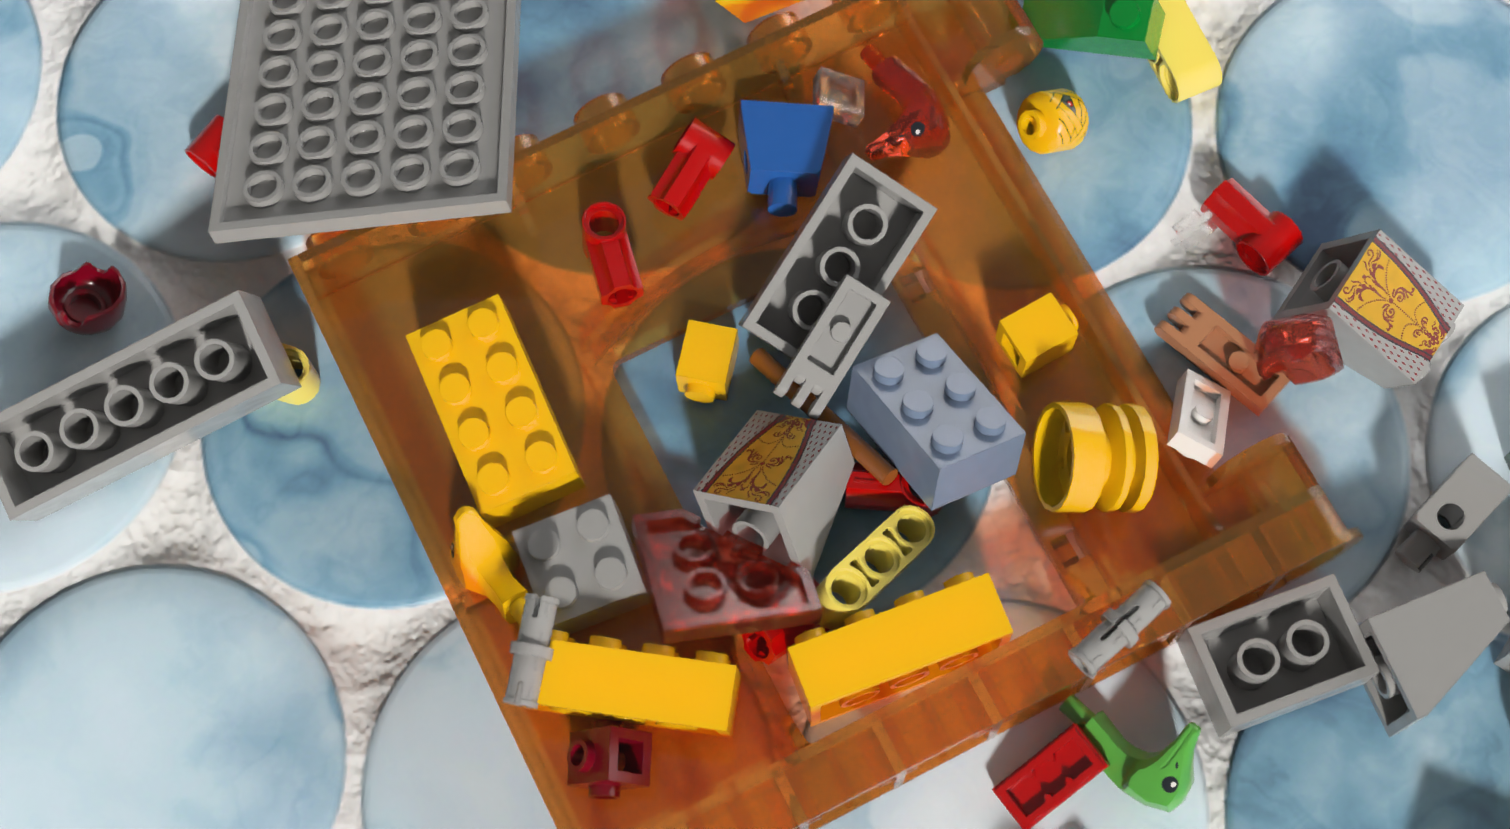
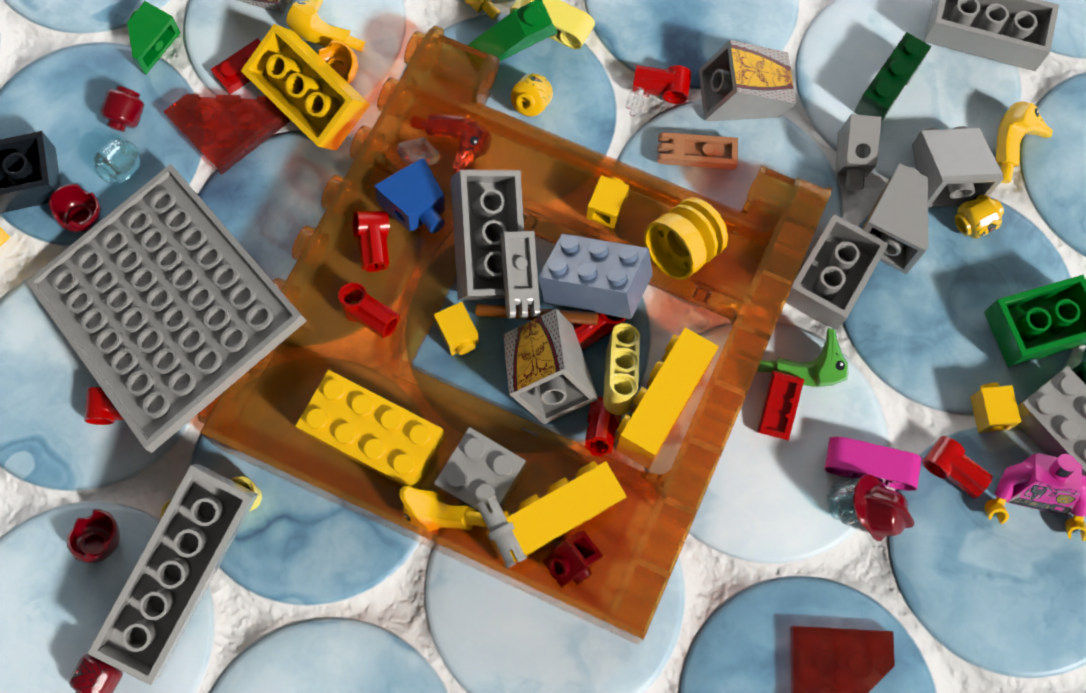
camera: 45 degrees left, 0 degrees up
(717, 582) = (557, 430): clear red plate -> none
(1119, 628) = (770, 288): light grey pin -> none
(1199, 418) = (714, 187): white plate -> none
(1299, 347) = (735, 122): clear red hair -> none

